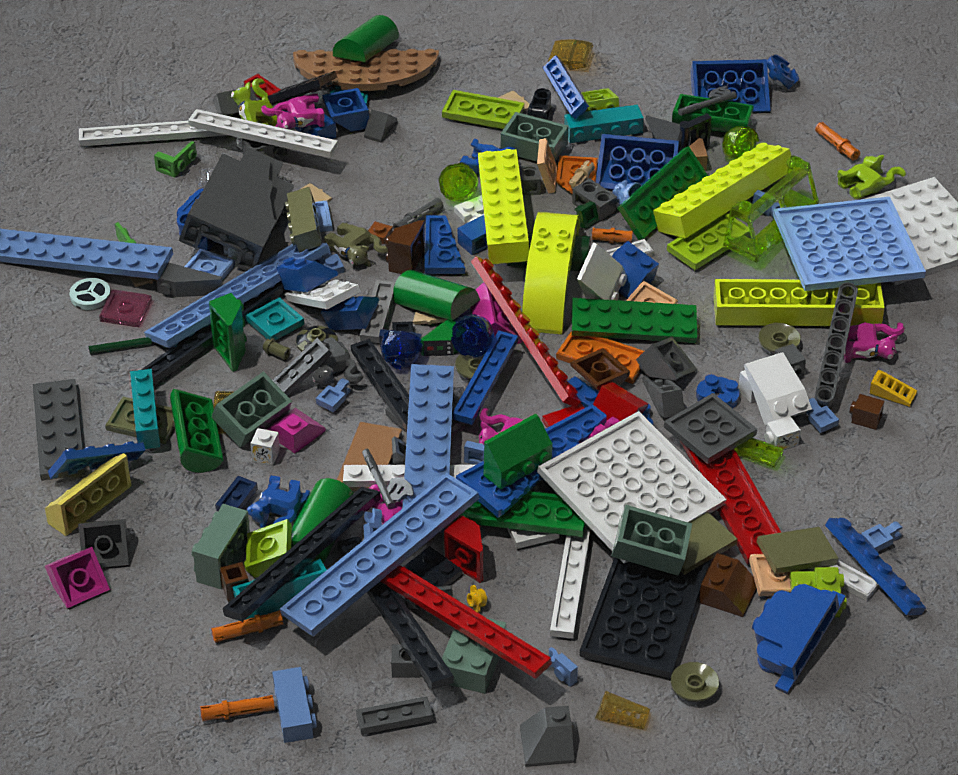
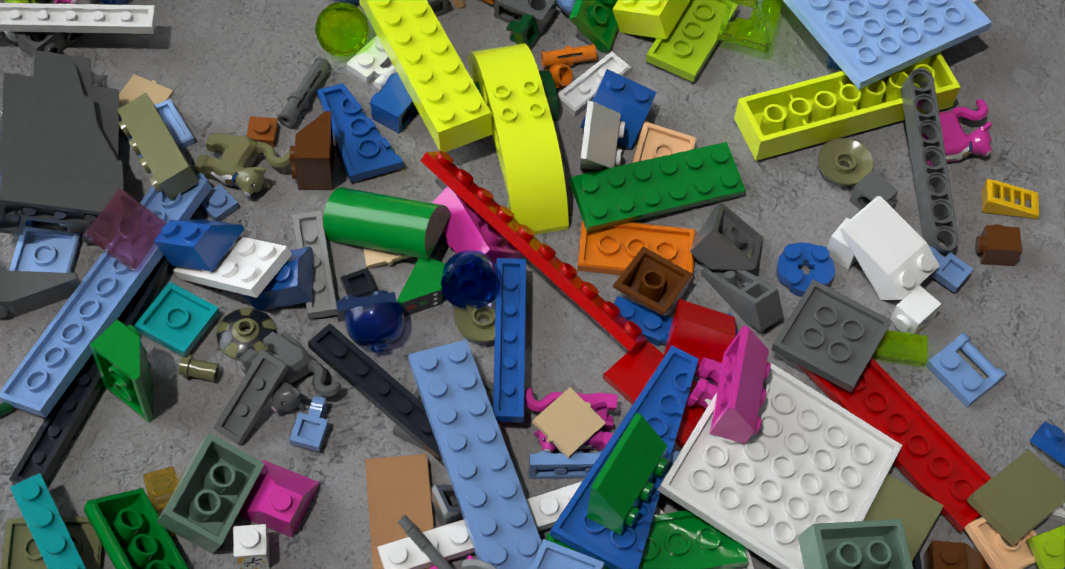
camera: 25 degrees left, 15 degrees up
(260, 255) = (125, 229): none -> clear pink tile
(496, 423) = (568, 422): none -> tan piece
(603, 241) = (561, 74): none -> orange plate
(618, 424) = (740, 388): none -> dark pink slope
(797, 481) = (959, 375): none -> medium blue plate

